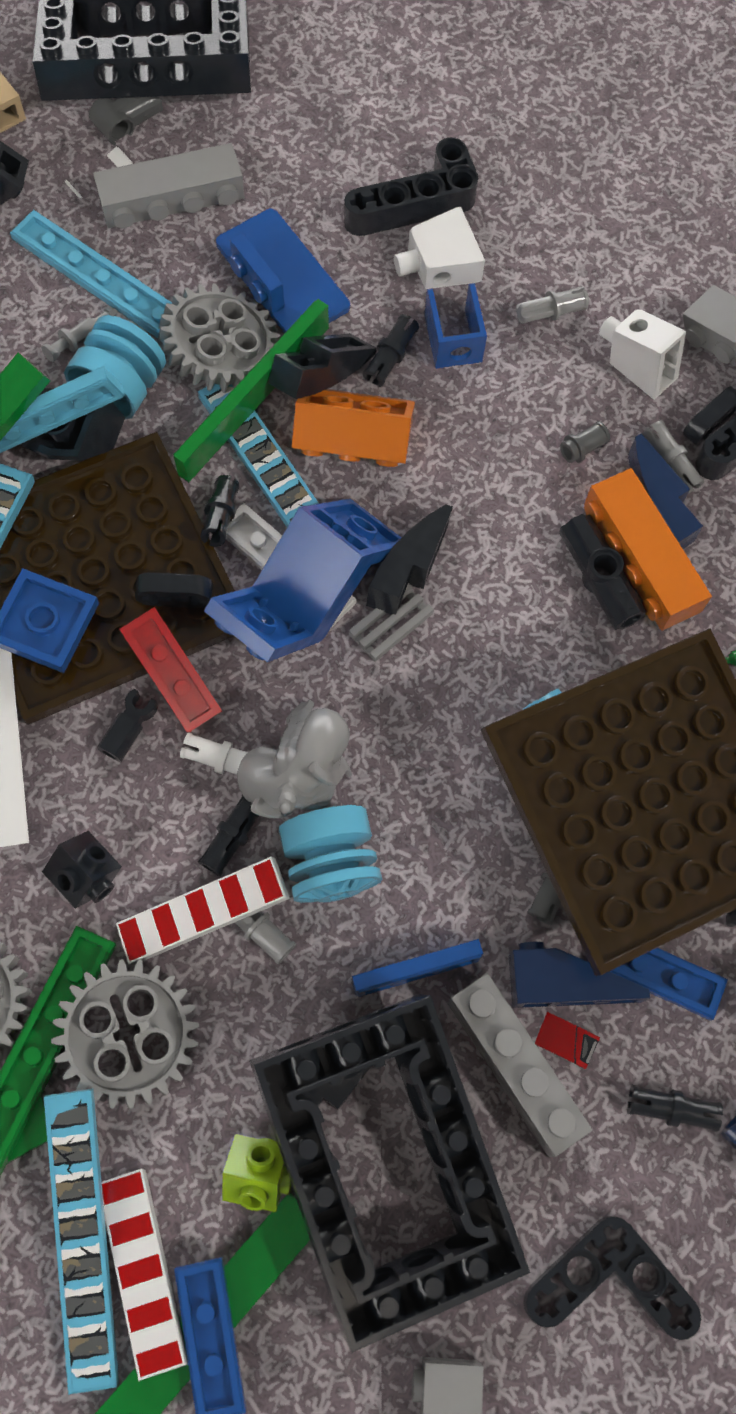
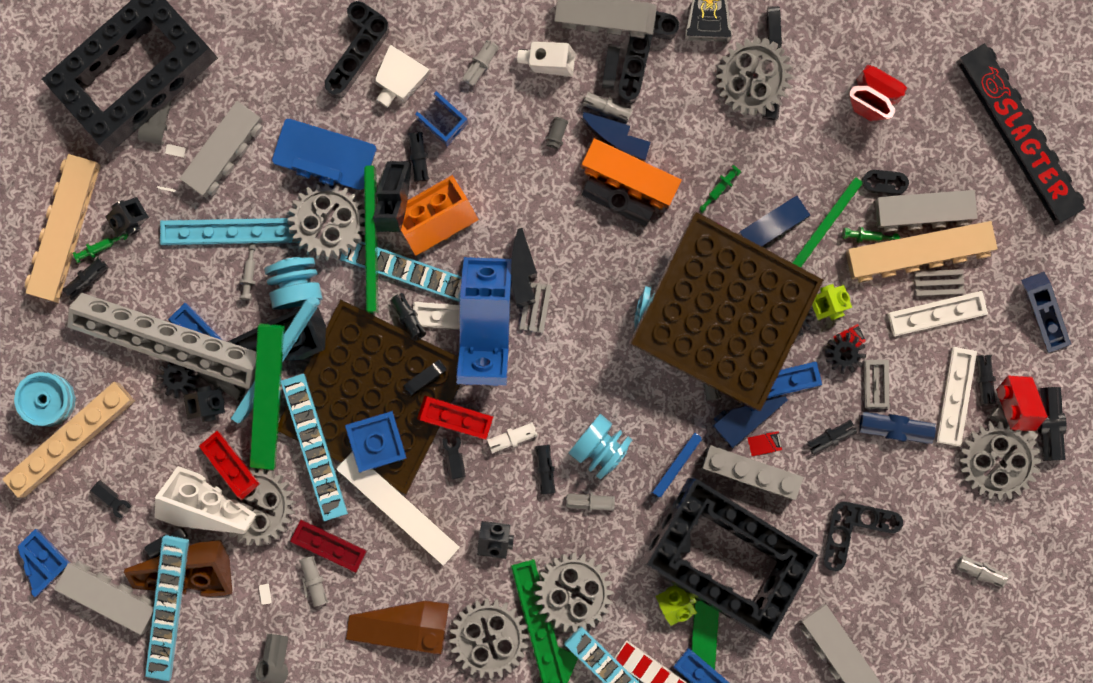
camera: 35 degrees left, 15 degrees up
(202, 910) = (563, 515): tile -> none
(301, 769) = (558, 418): light grey hair -> none

